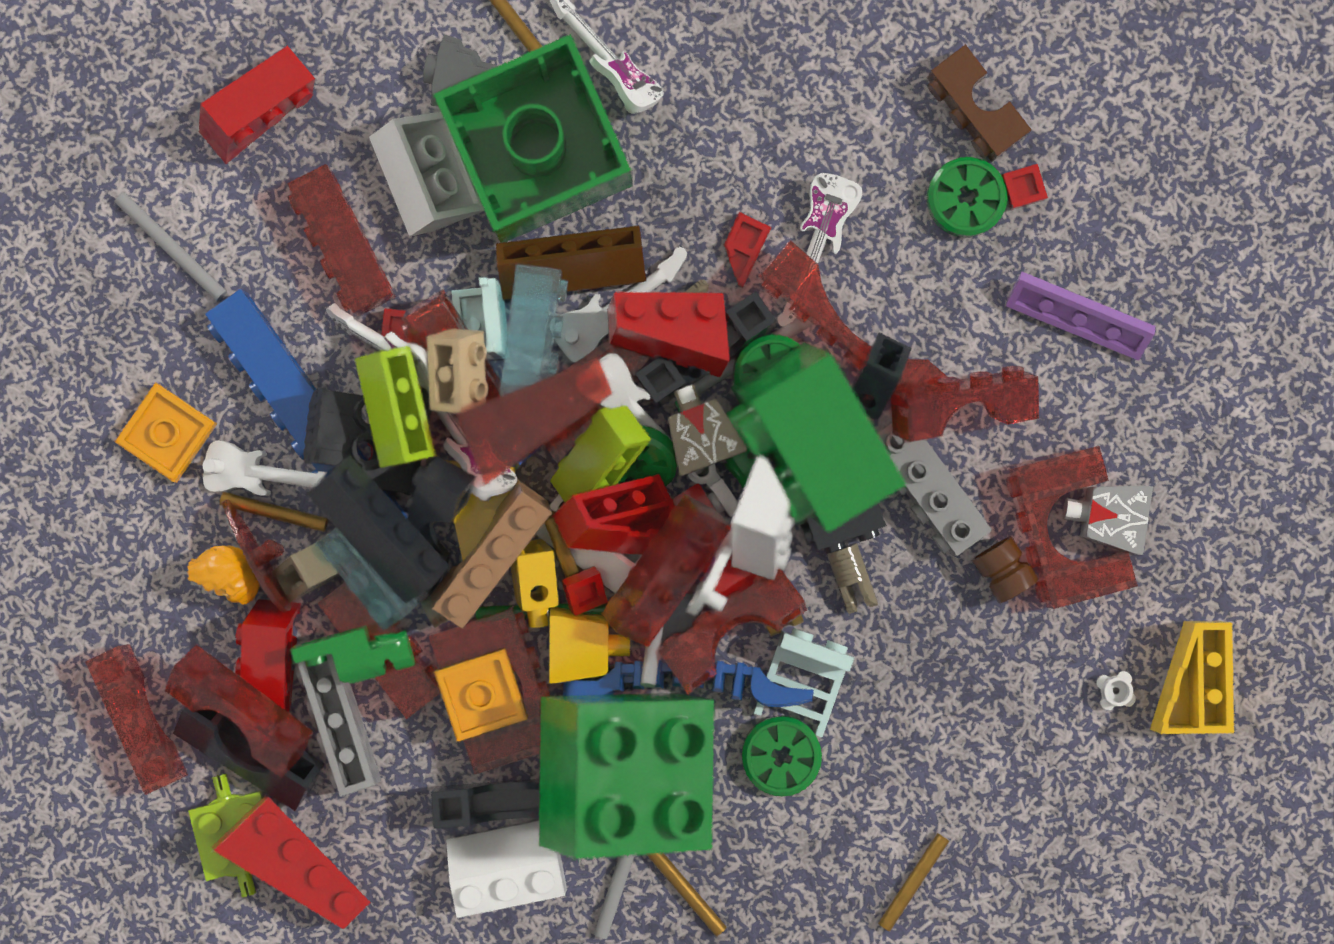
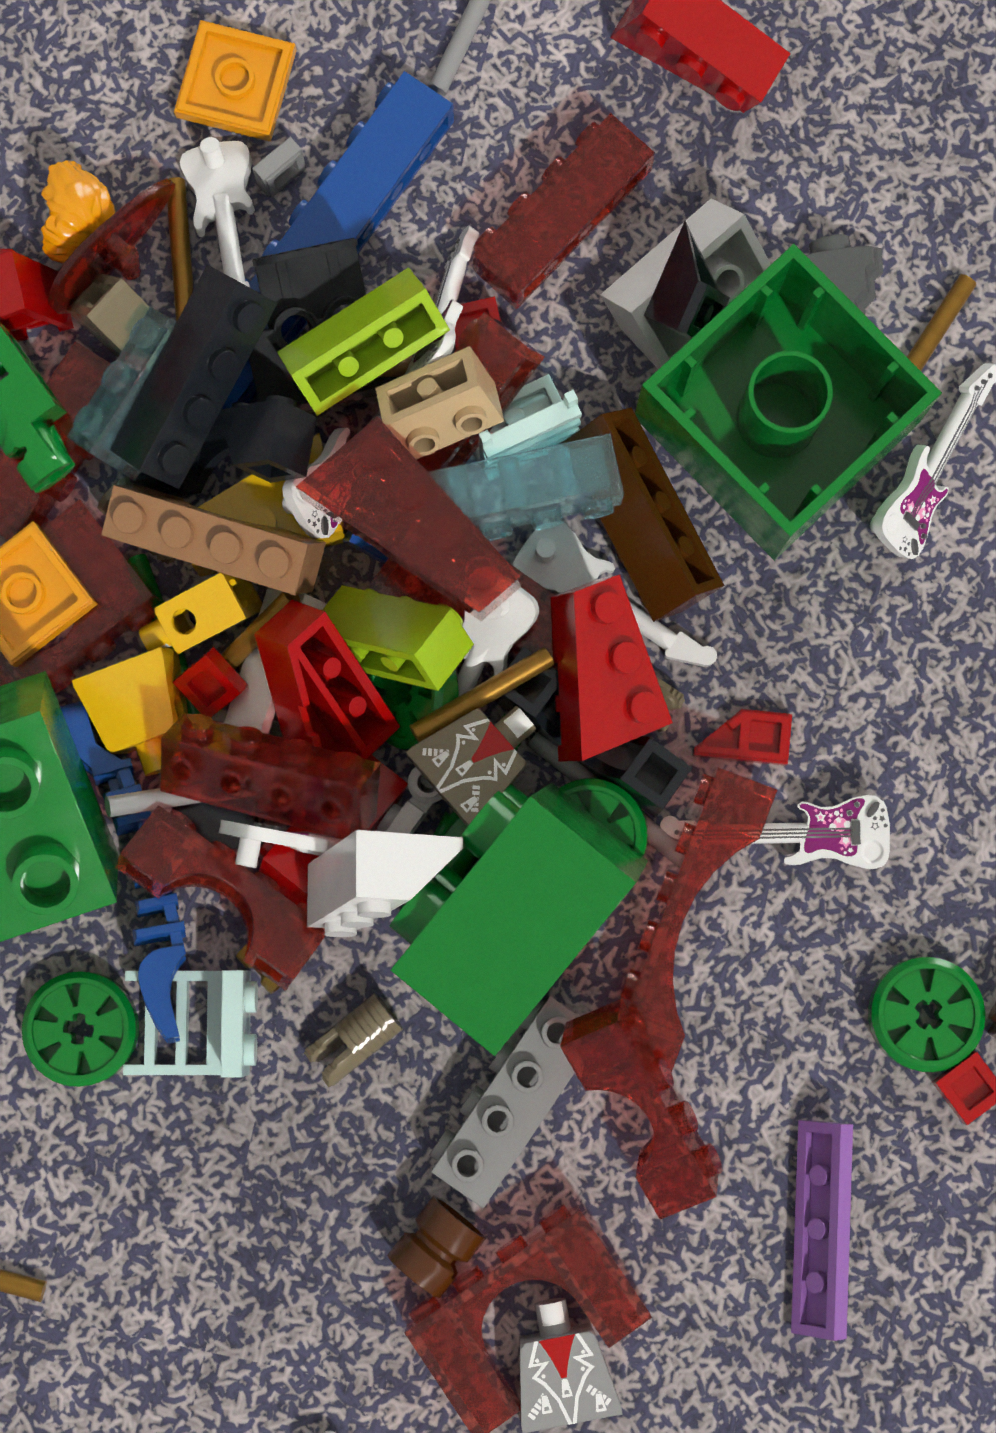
camera: 70 degrees right, 5 degrees down
(240, 423) = (279, 167): none -> light grey tile
(434, 177) = (686, 290): none -> black slope
(659, 412) = (482, 694): none -> pearl gold bar
(862, 525) = (430, 1028): black brick -> none
(880, 374) = (622, 969): black torso -> none

